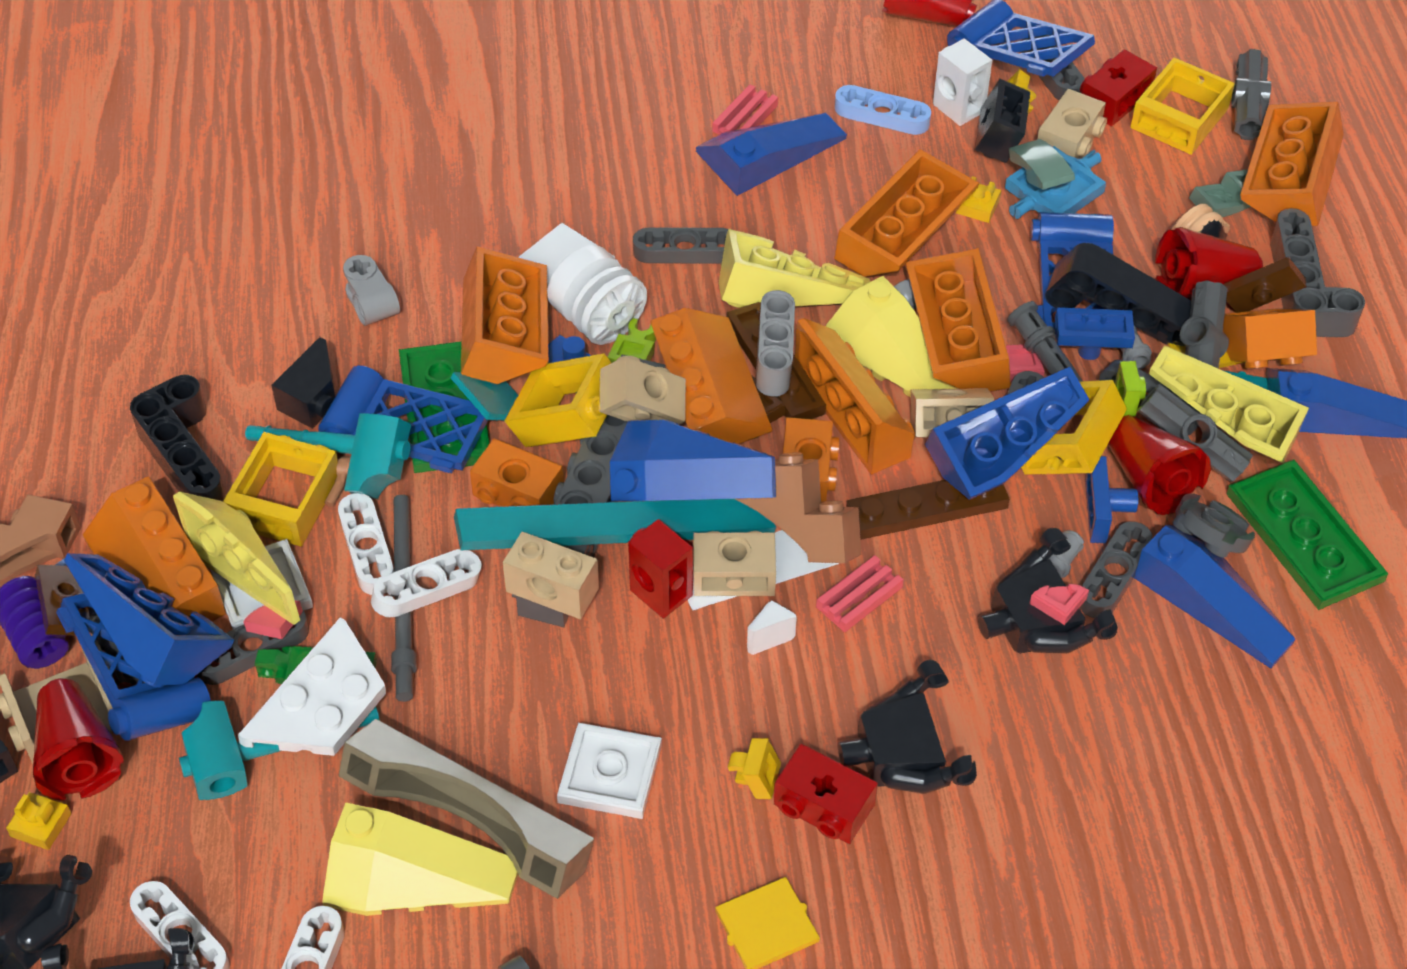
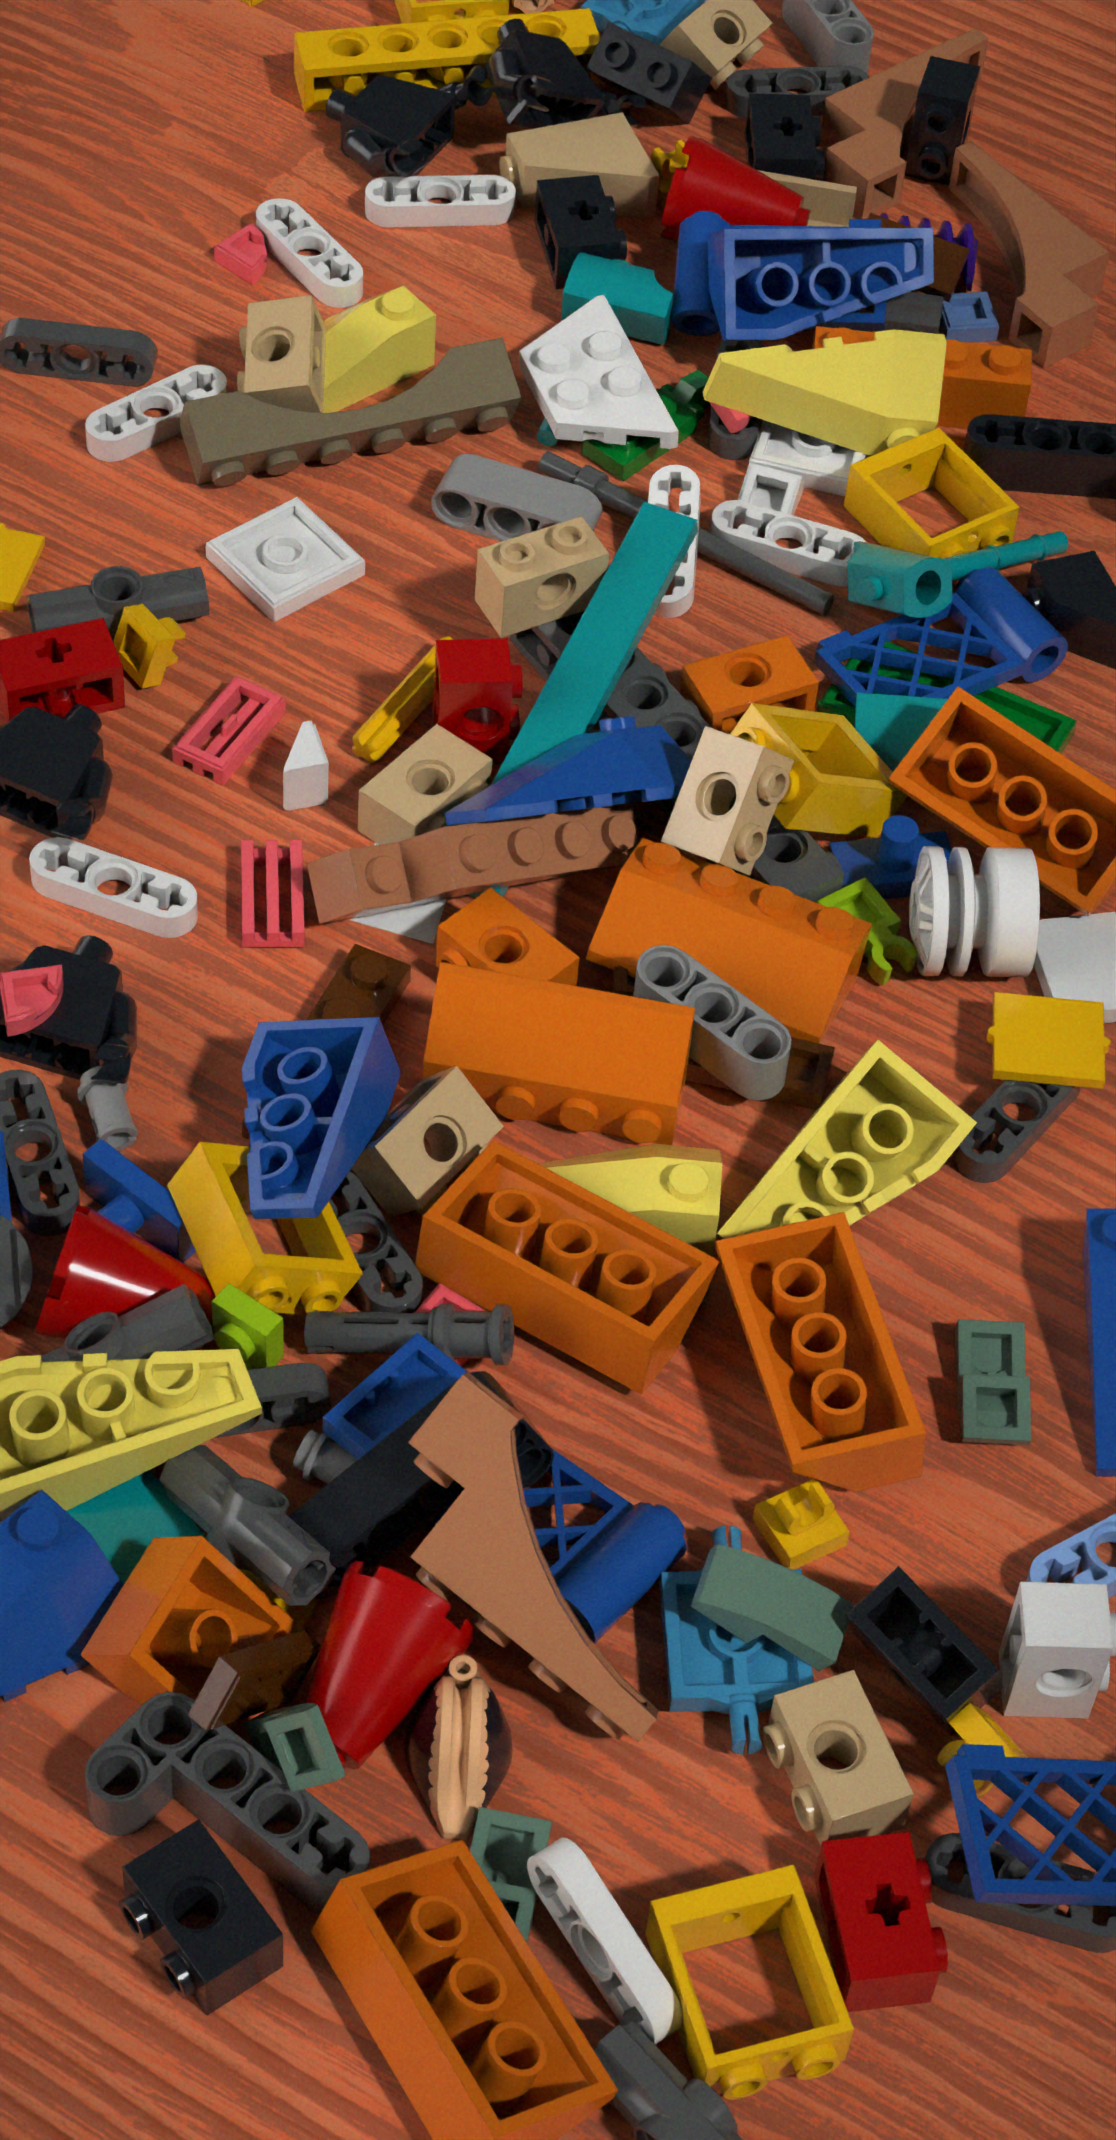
camera: 125 degrees right, 0 degrees up
(76, 833) = (584, 148): none -> tan slope
(157, 819) = (573, 219): none -> black brick
(330, 577) = (772, 488): none -> white slope
(463, 678) = (507, 500): none -> light grey beam
(478, 838) = (284, 353): none -> tan brick
(539, 916) = (123, 429): none -> white beam
(640, 245) = (1048, 1040): none -> yellow piece
(663, 629) = (397, 710): none -> yellow axle
(764, 818) = (166, 594): none -> dark grey piece
(770, 702) = (239, 733): none -> coral tile
(846, 181) = (992, 1382): none -> sand green slope
(934, 644) = (129, 908): none -> white beam
(1131, 228) = (494, 1561): none -> nougat arch
(1222, 141) = (604, 1940): none -> white beam
(1277, 239) = (297, 1744): none -> sand green slope
(1356, 255) = (195, 1876): none -> black brick

